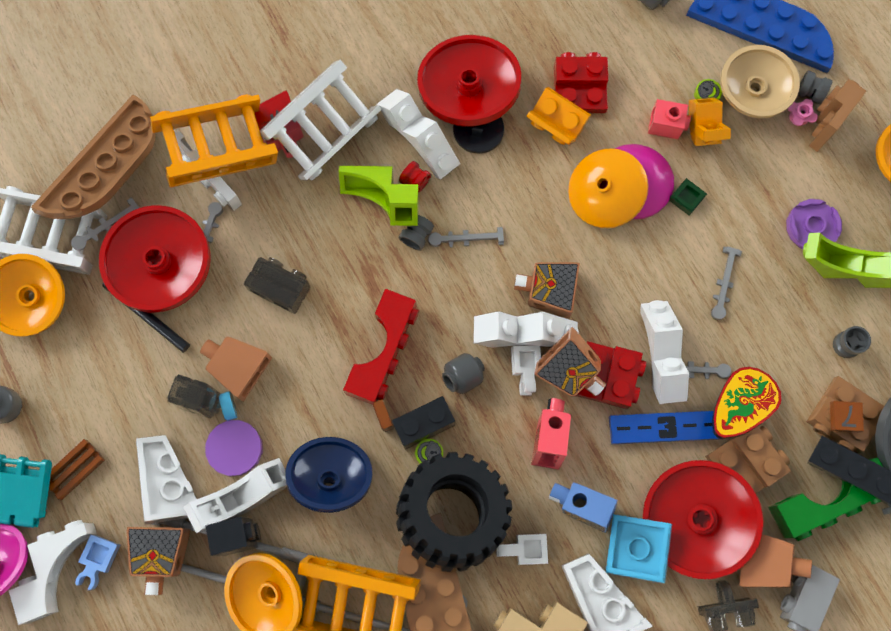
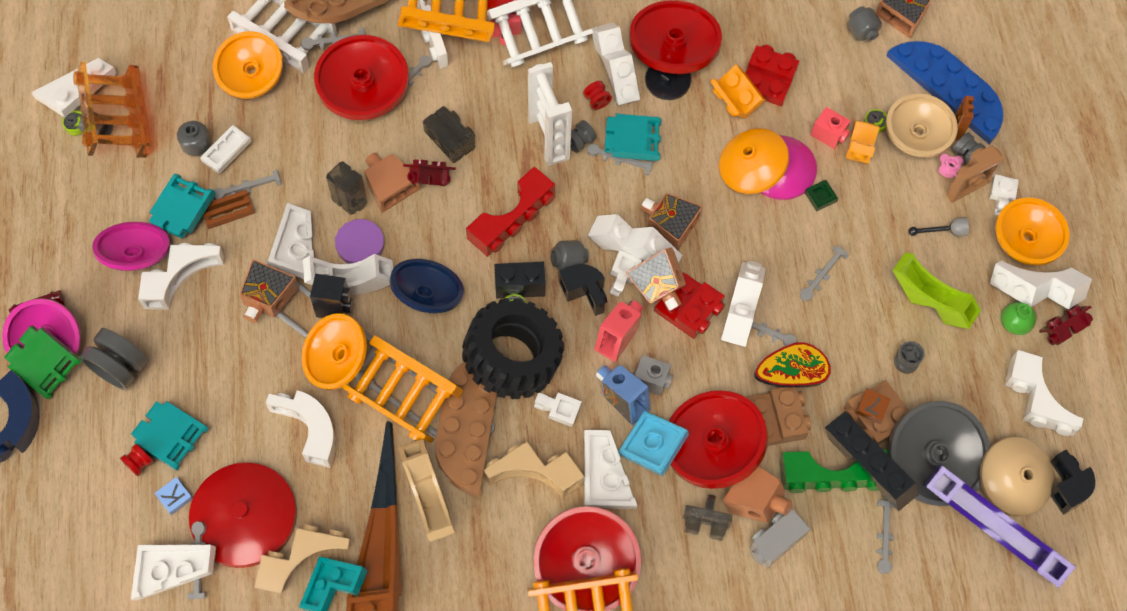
camera: 20 degrees right, 10 degrees down
(41, 400) = (225, 149): none -> white plate
(56, 454) = (220, 193): none -> light grey piece
(97, 557) = (217, 279): light blue plate -> none
(161, 328) = (340, 128): black bar -> none
(228, 406) = (369, 208): medium azure tile -> none
(267, 342) = (421, 171): none -> dark red hinge
(377, 185) = (566, 90): lime arch -> none
(383, 416) = (489, 261): dark orange tile -> none
(390, 235) = (553, 117): none -> white fence
(471, 210) = (632, 136): none -> teal plate
(492, 394) = (582, 281): none -> black brick
(606, 472) = (654, 374): none -> light grey brick
(661, 427) = (715, 362): blue tile -> none
(804, 57) = (964, 116): none -> dark orange tile
(813, 217) = (926, 251): medium lavender tile -> none
(837, 177) = (958, 227): none -> hinge
(865, 120) = (1003, 191): none -> white plate

